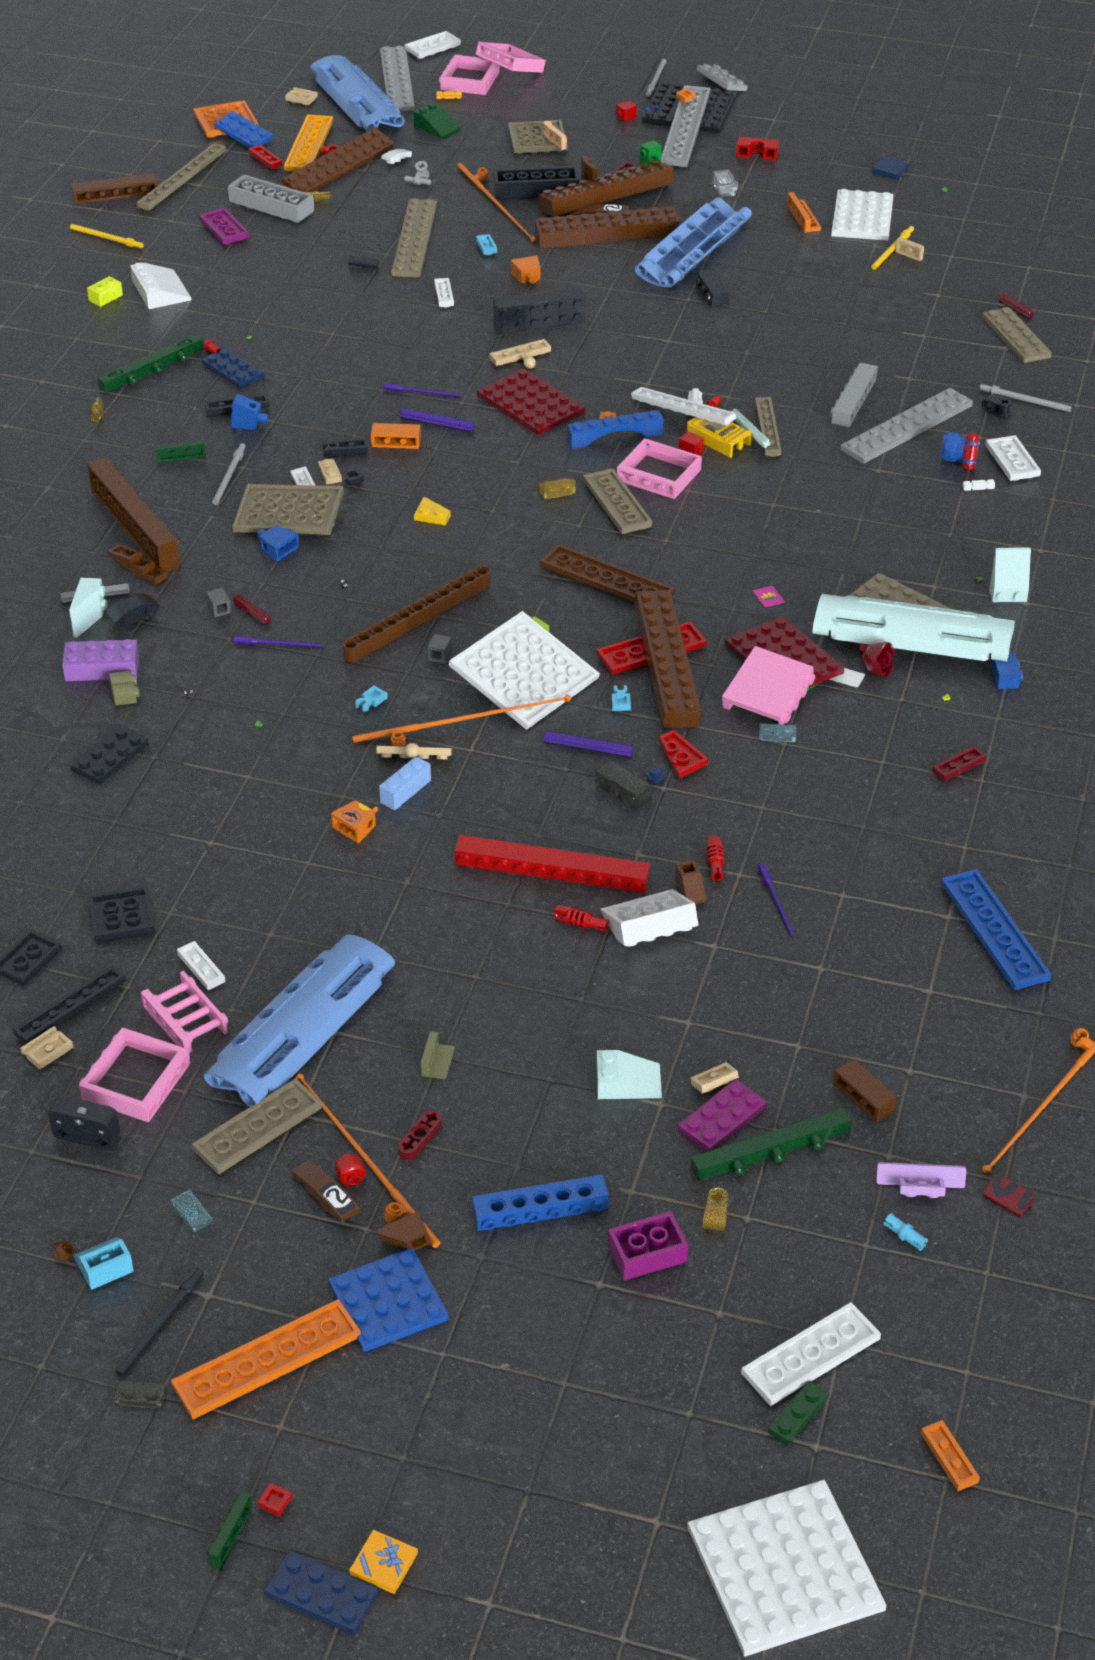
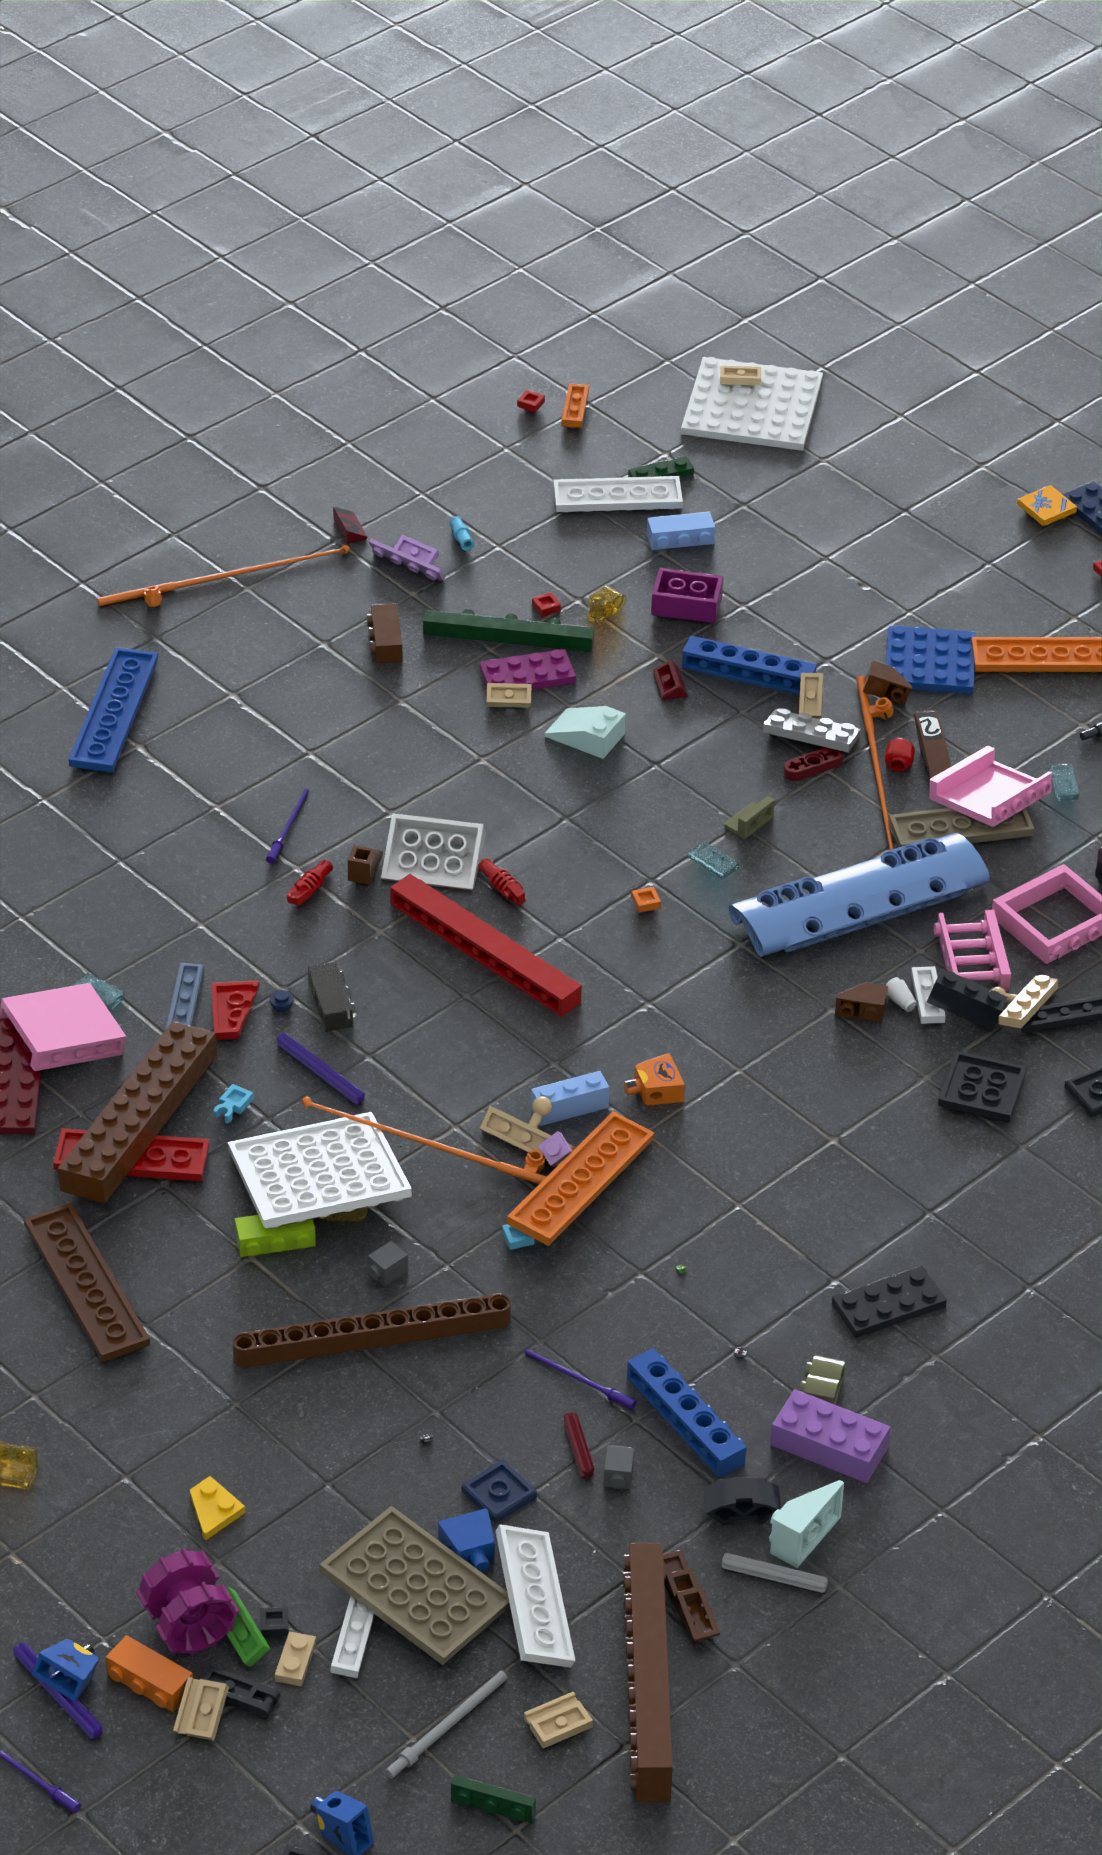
camera: 150 degrees left, 0 degrees up
(118, 983) = (1027, 1002): none -> tan plate
(164, 957) = (967, 999): none -> black brick
(170, 491) = (558, 1720): none -> tan plate
(198, 642) = (686, 1412): none -> blue brick
(221, 528) = (535, 1596): none -> white plate
(222, 956) = (900, 994): none -> white cone
(245, 936) = (863, 1002): none -> reddish brown slope
(246, 1160) = (987, 788): none -> bright pink panel
(281, 574) = (499, 1491): none -> dark blue tile
(355, 430) = (201, 1708): none -> tan plate
(356, 734) = (580, 1178): none -> orange plate
(367, 468) = (246, 1635): none -> bright green plate
(386, 740) = (555, 1149): none -> lavender plate
(400, 449) = (189, 1604): none -> magenta piece
(436, 417) = (66, 1667): none -> blue torso
(437, 1005) = (713, 860): none -> clear light blue plate
(440, 1159) = (811, 730): none -> light grey plate
(462, 1187) = (811, 694): none -> tan plate
(464, 949) = (646, 899): none -> orange plate
(597, 1163) = (670, 681): none -> dark red slope
(715, 1332) = (680, 530): none -> light blue brick
(719, 752) = (186, 994): none -> sand blue tile
(767, 1194) = (546, 604): none -> red tile
(815, 1571) = (740, 375): none -> tan plate
(996, 1438) = (531, 401): none -> red plate

